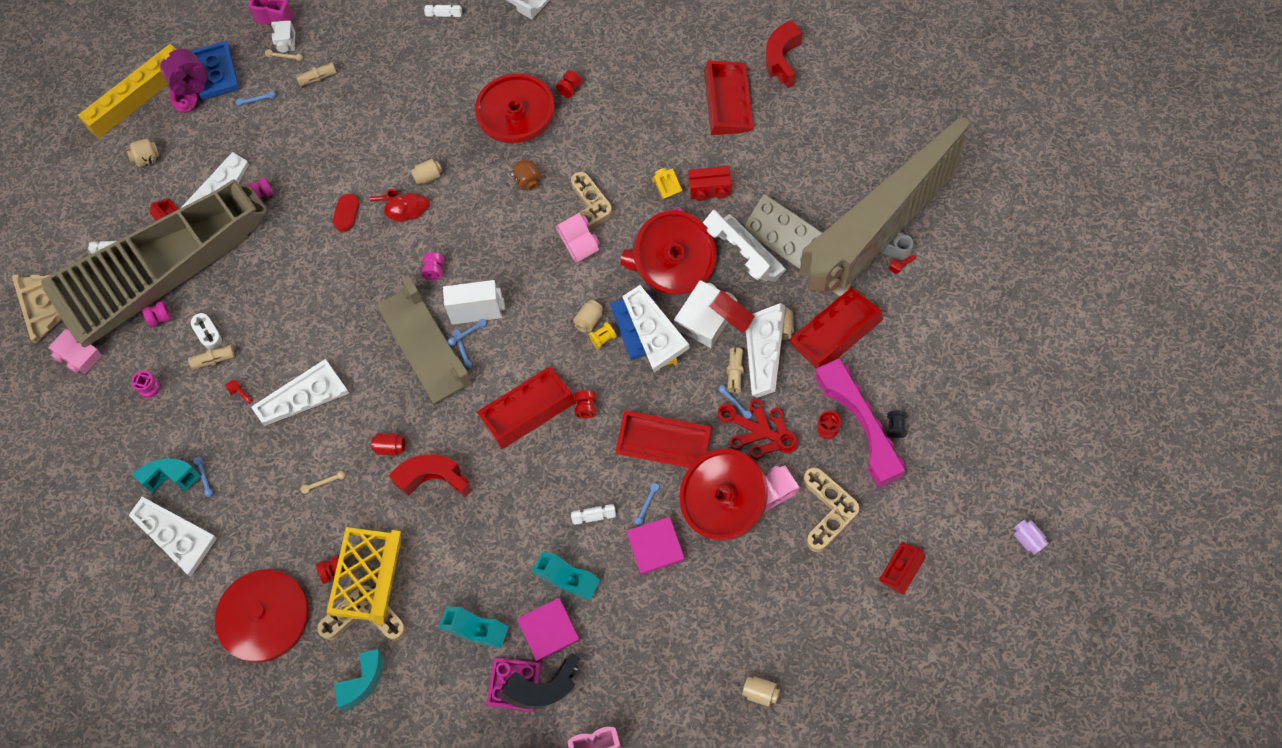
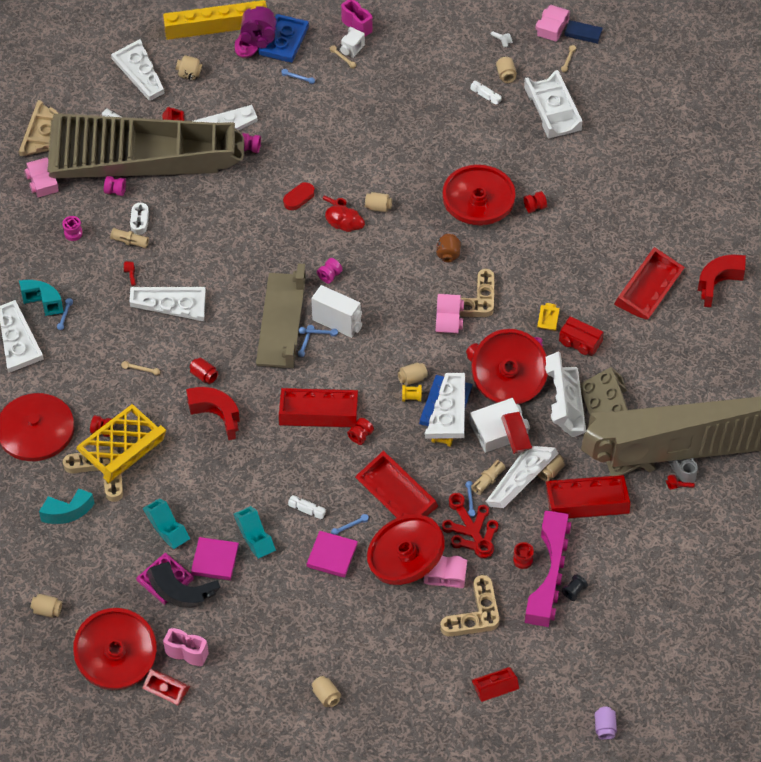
camera: 30 degrees right, 10 degrees down
(93, 183) = (138, 68): none -> white wing
(316, 74) = (354, 84): tan pin -> none

